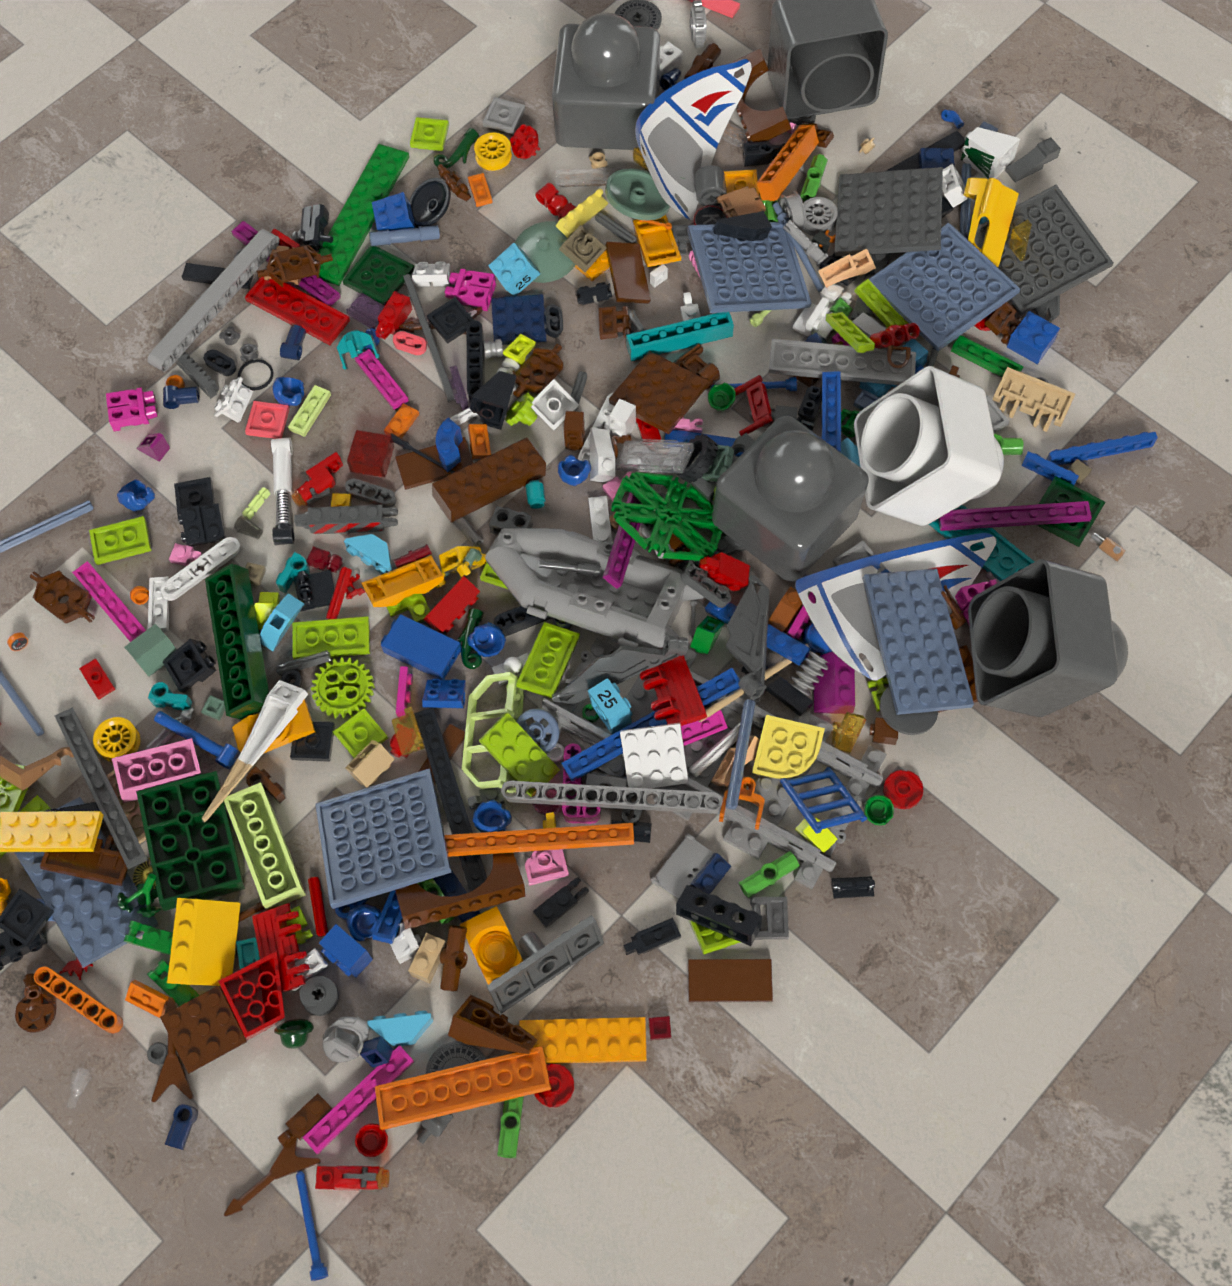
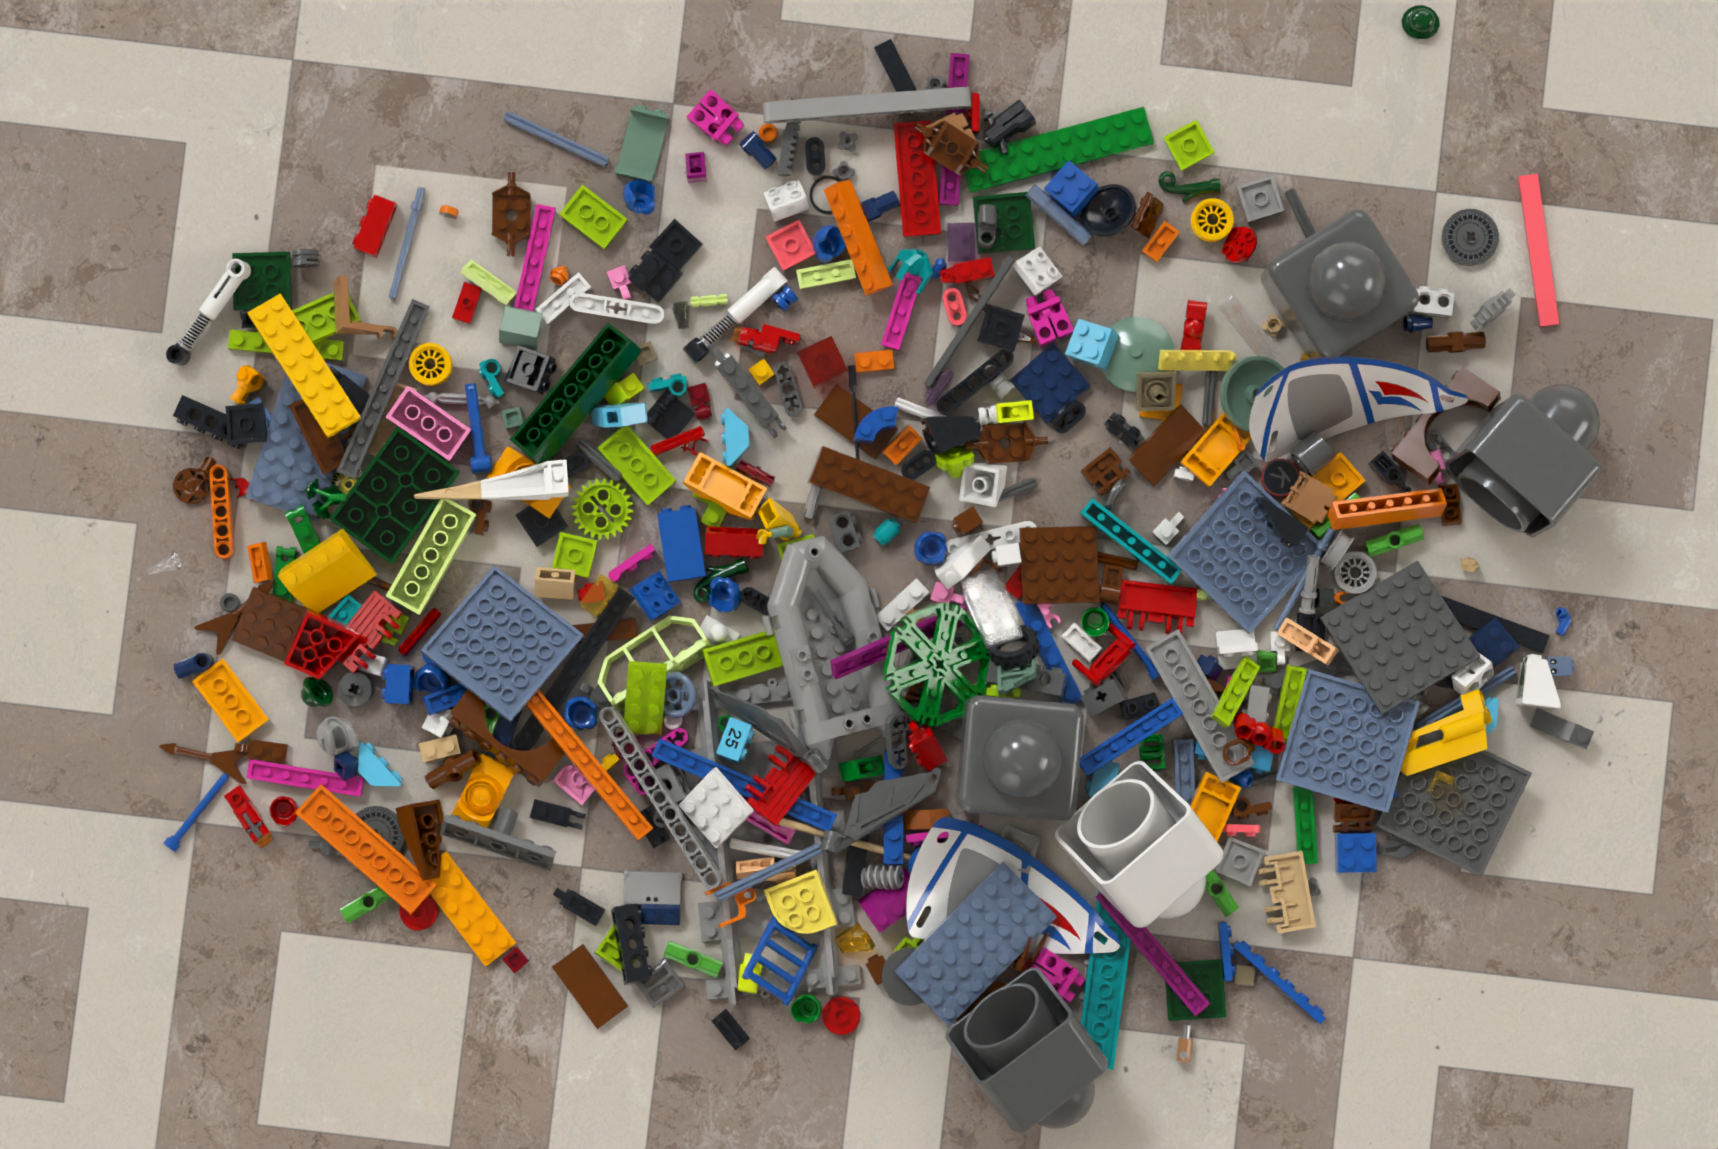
camera: 50 degrees right, 20 degrees up
(96, 650) = (488, 282): none -> yellowish green plate
(99, 469) = (642, 144): none -> sand green panel
(239, 1116) = (230, 700): none -> light orange plate
(301, 448) = (785, 298): none -> blue wheel
(302, 369) = (858, 237): none -> orange brick
(368, 278) = (986, 224): none -> dark grey piece
(503, 441) = (918, 464): none -> black plate
(532, 100) = (1299, 212): none -> dark grey axle
(719, 653) = (854, 787): none -> reddish brown plate
(729, 418) = (1081, 642): none -> white plate
(742, 347) = (1157, 602): none -> red hinge

